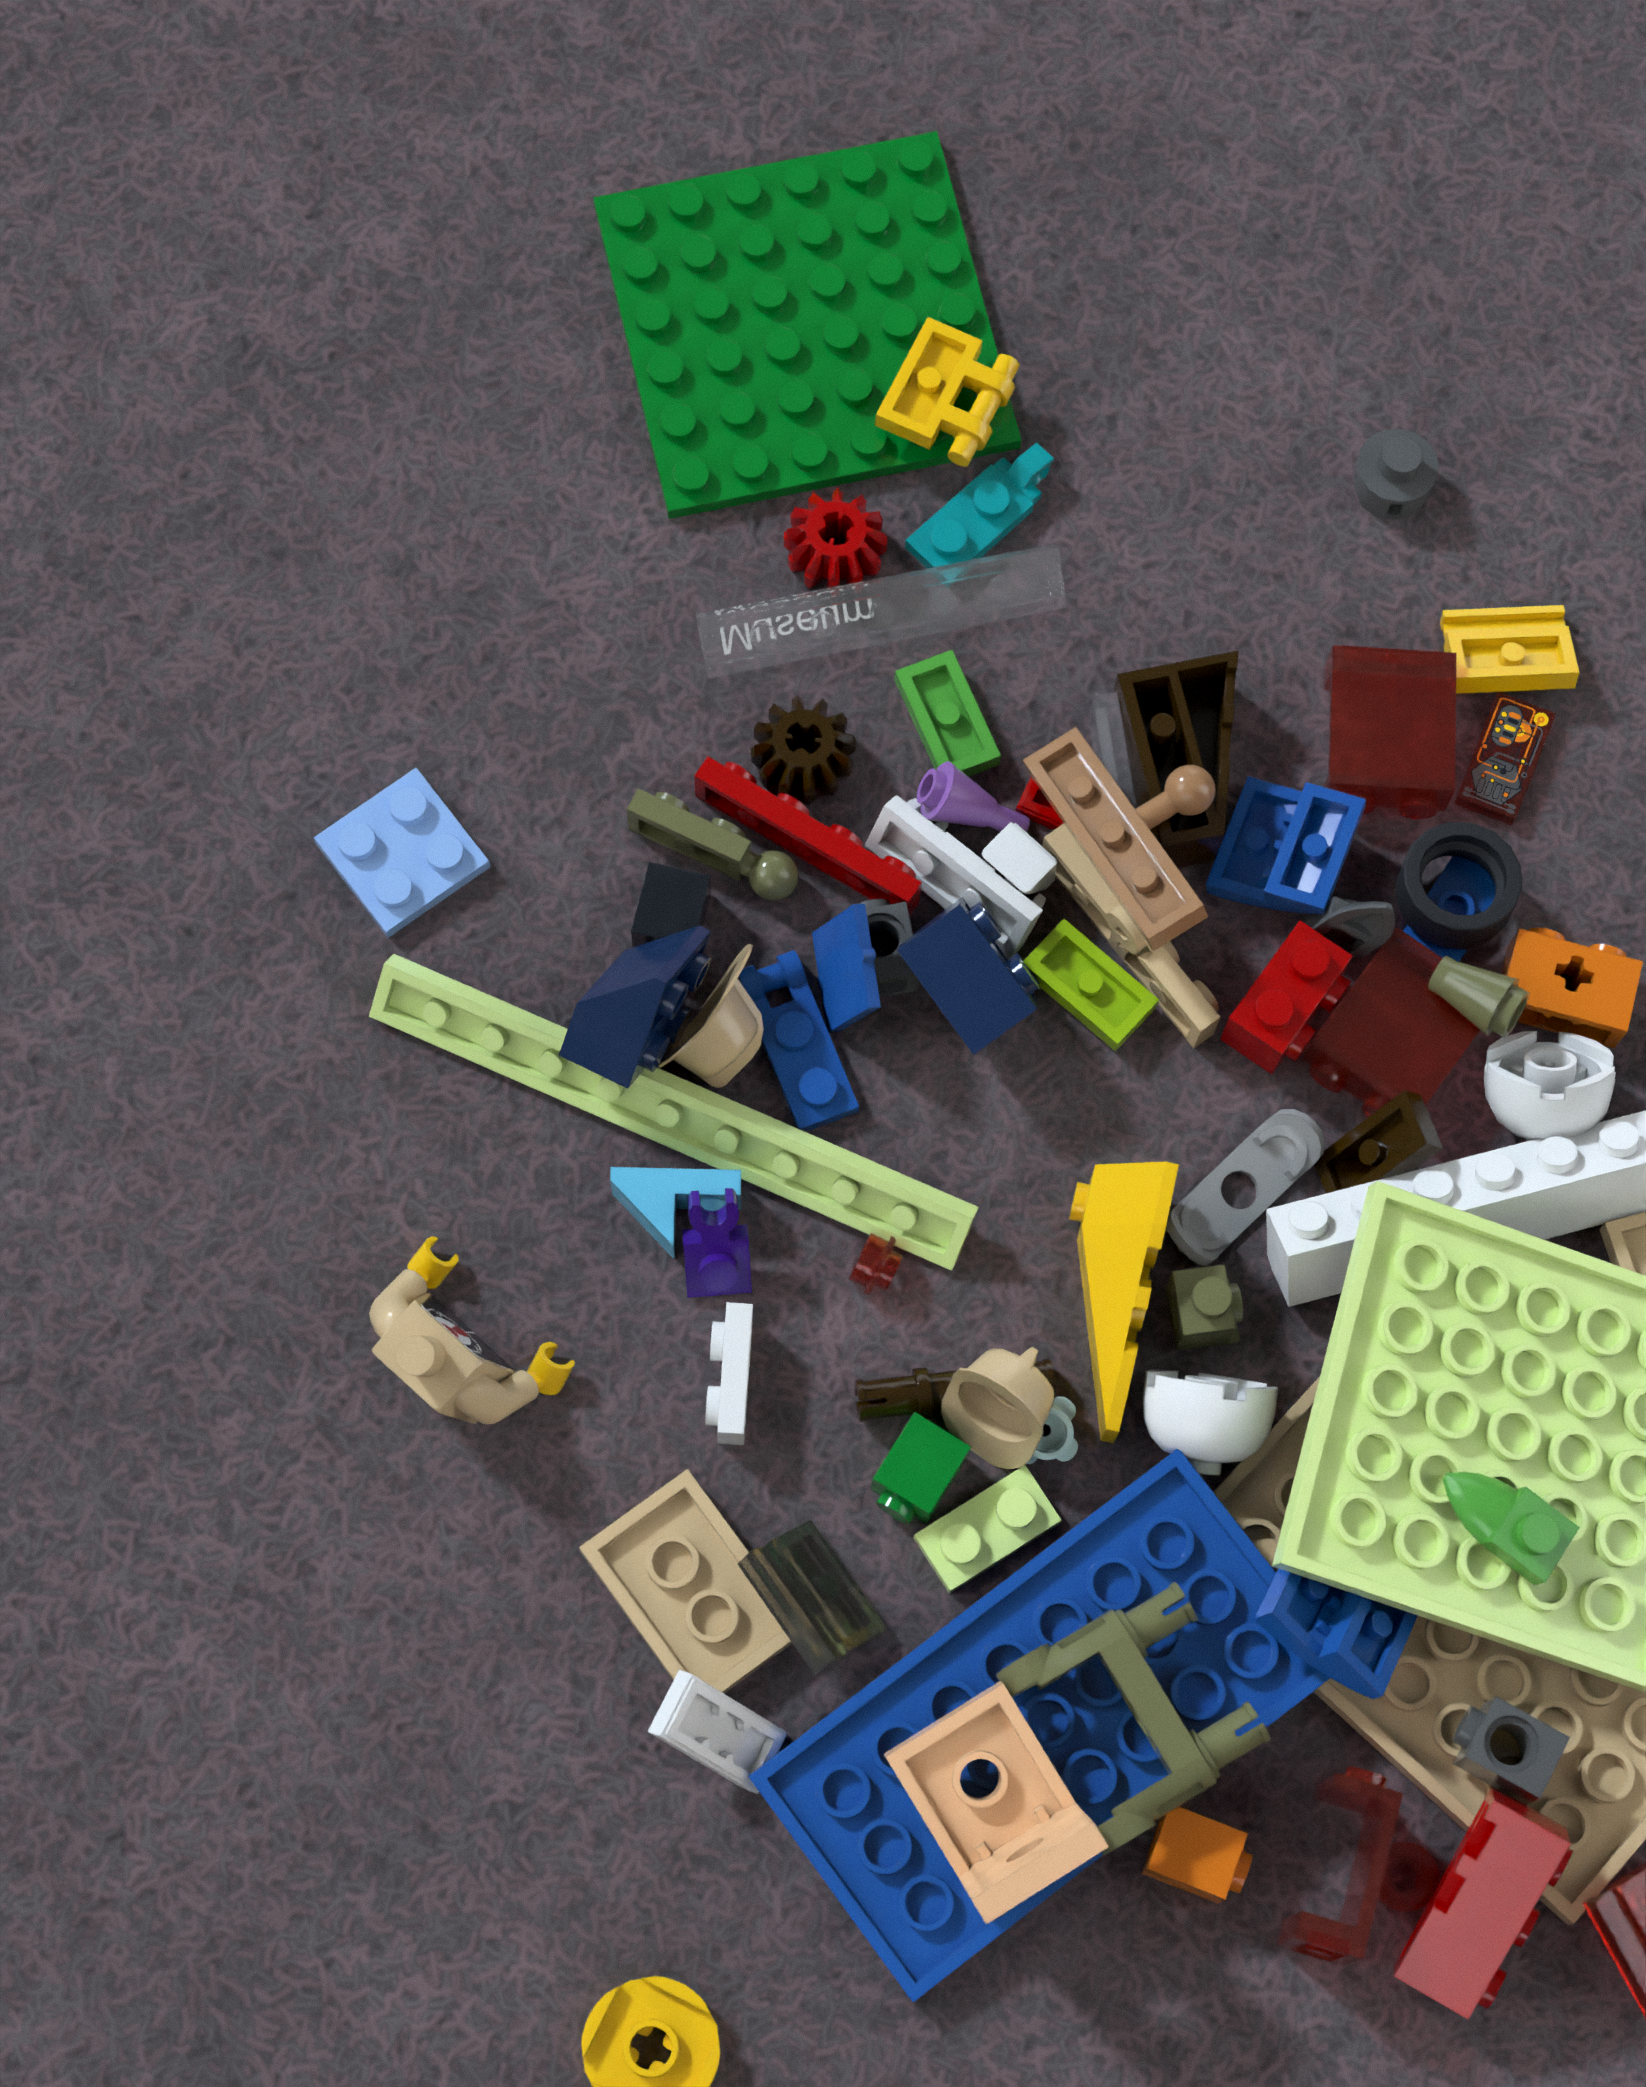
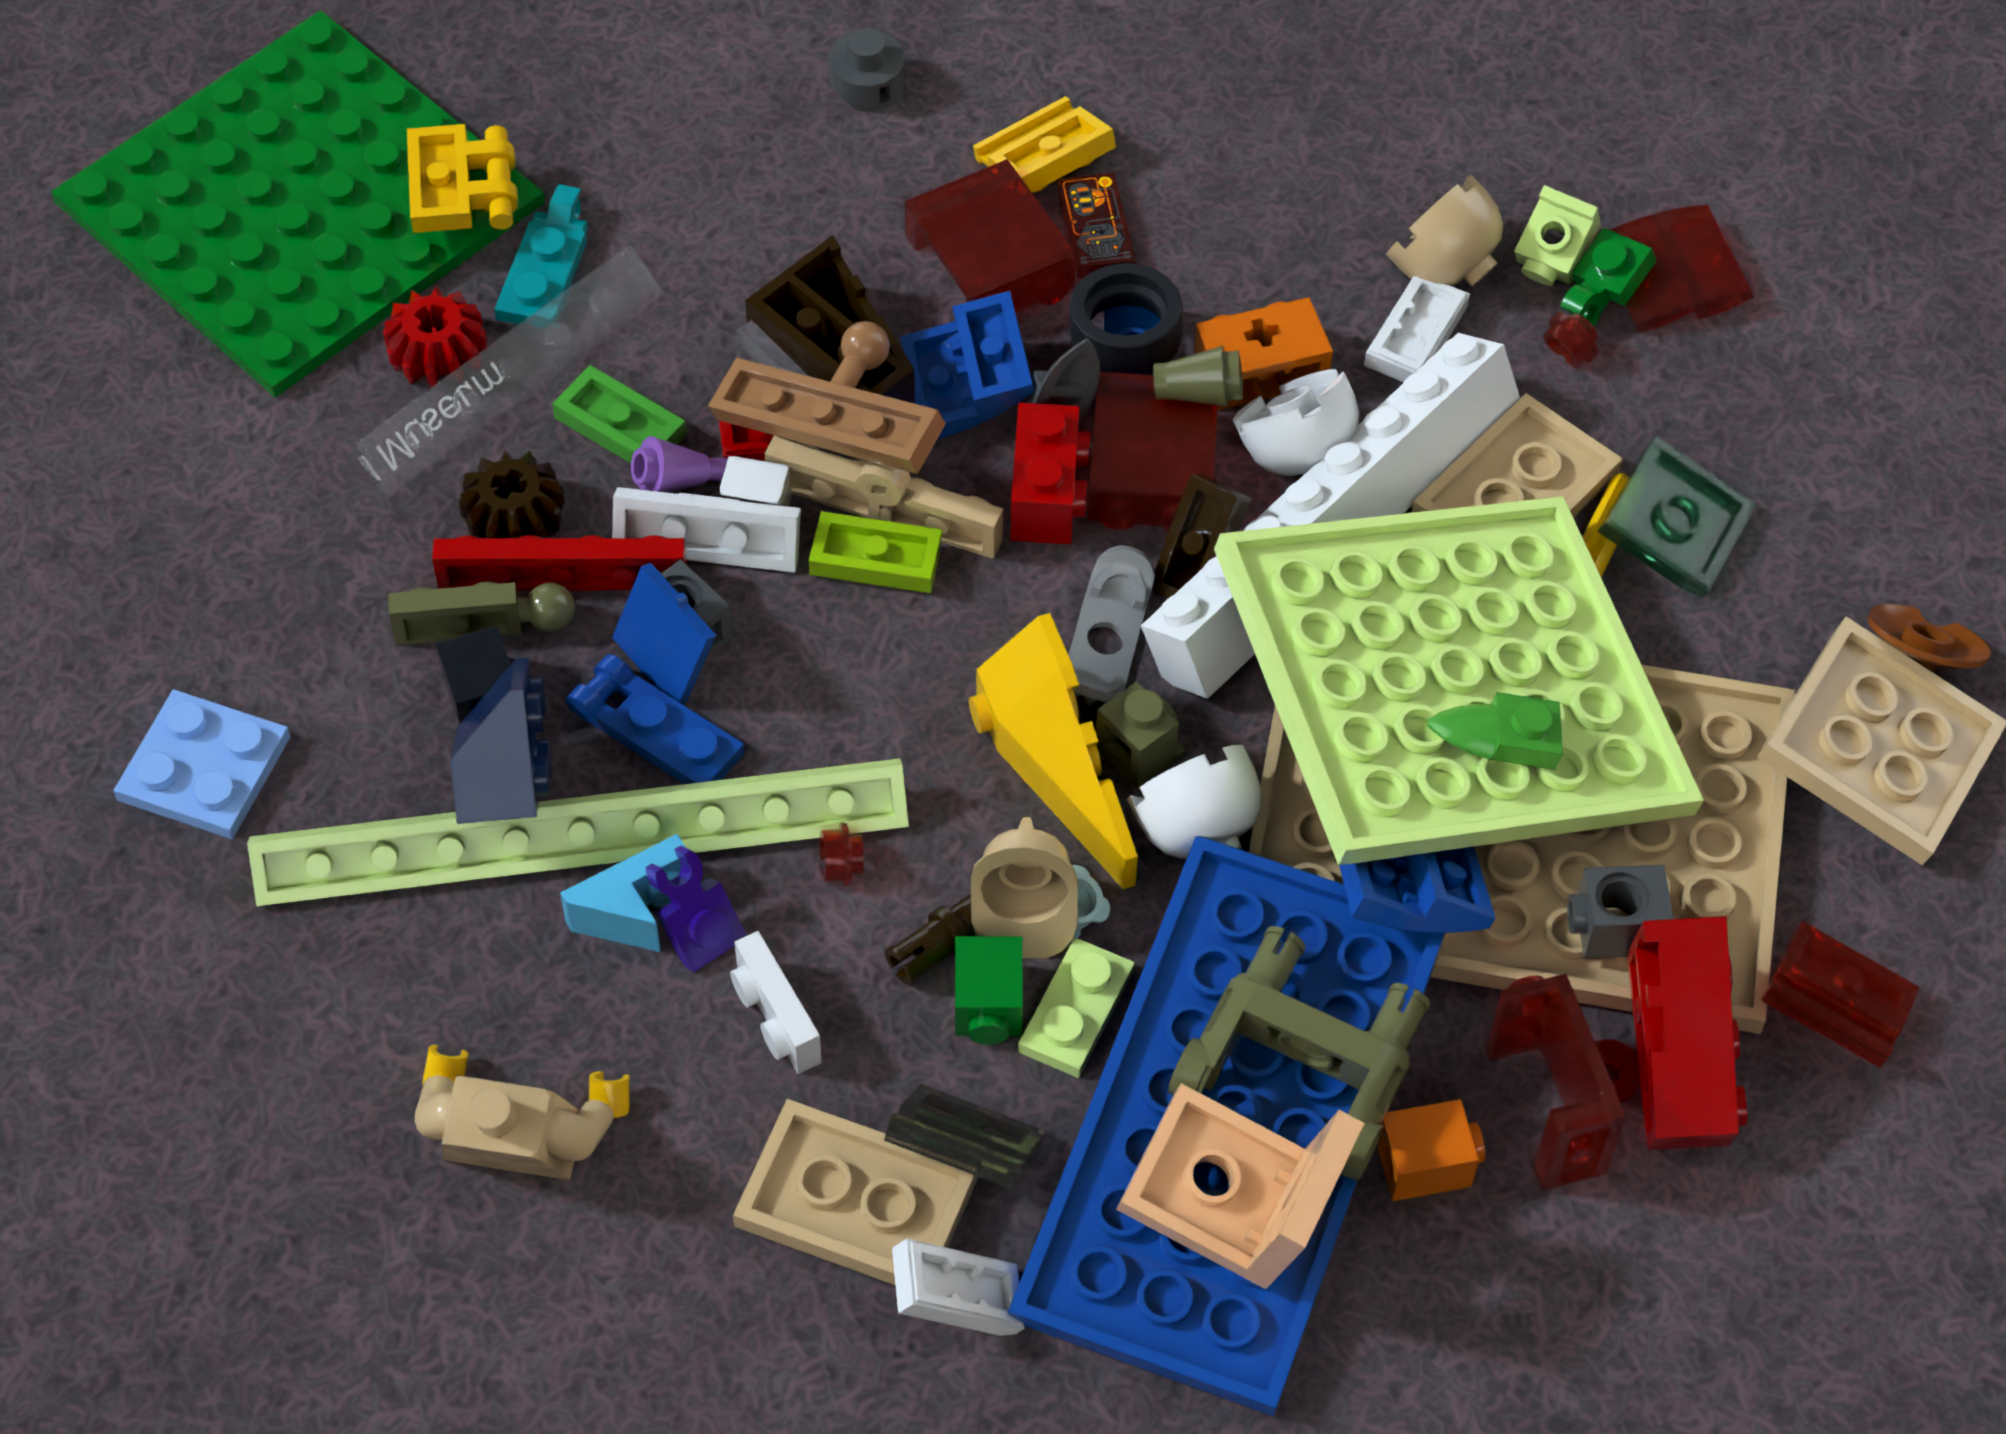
camera: 30 degrees left, 15 degrees down
(723, 1032) = (587, 741): tan piece -> none
(970, 974) = (775, 574): dark blue slope -> none

